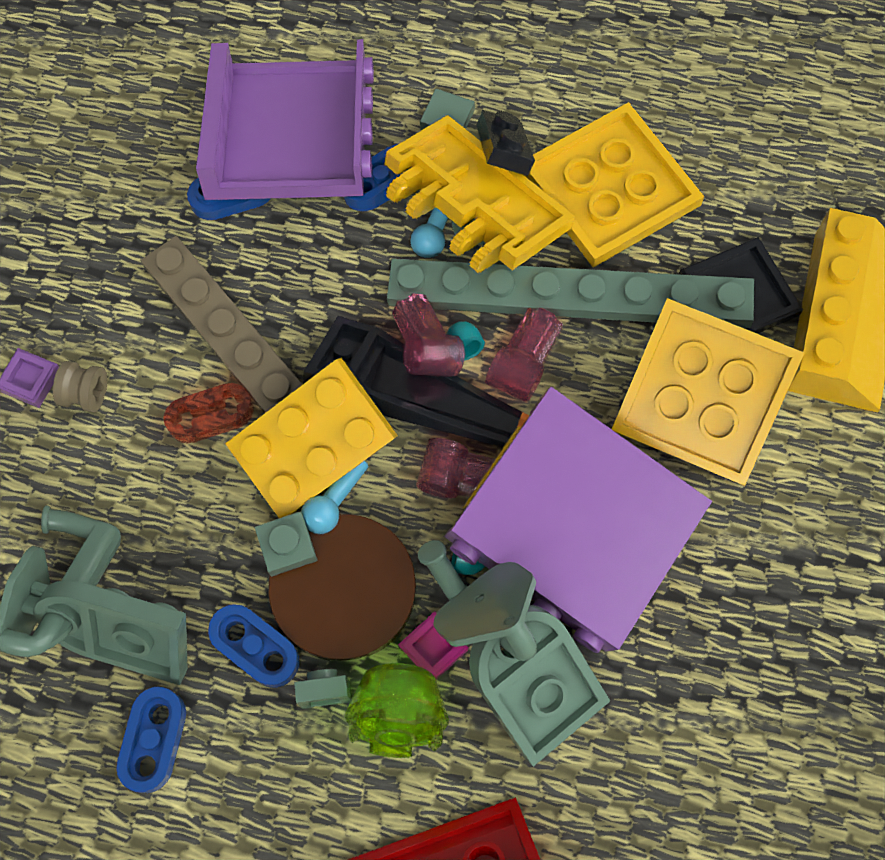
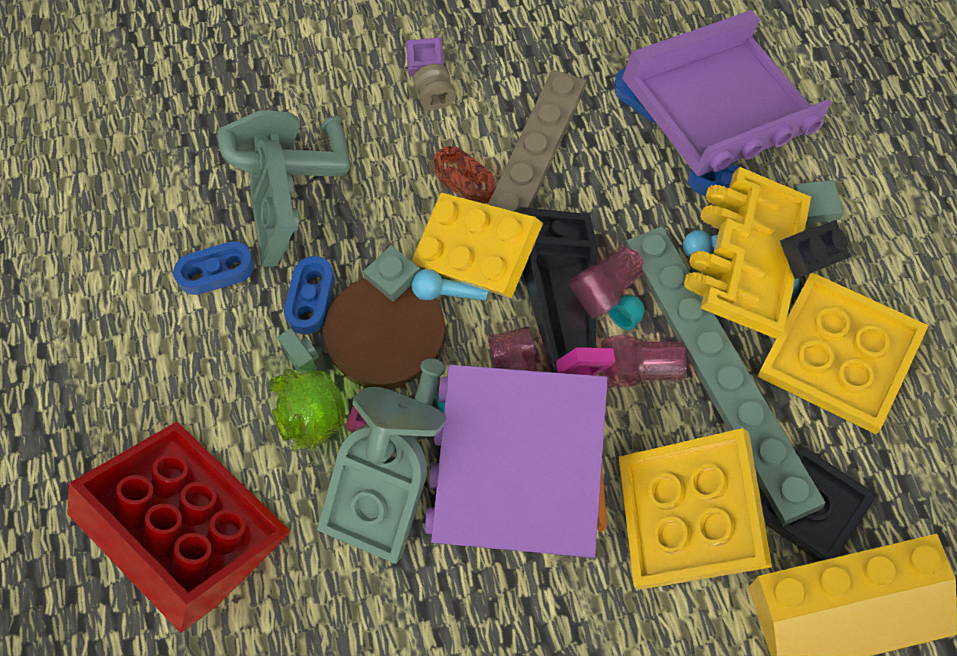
camera: 65 degrees right, 5 degrees down
(505, 404) = (586, 361): none -> dark pink tile

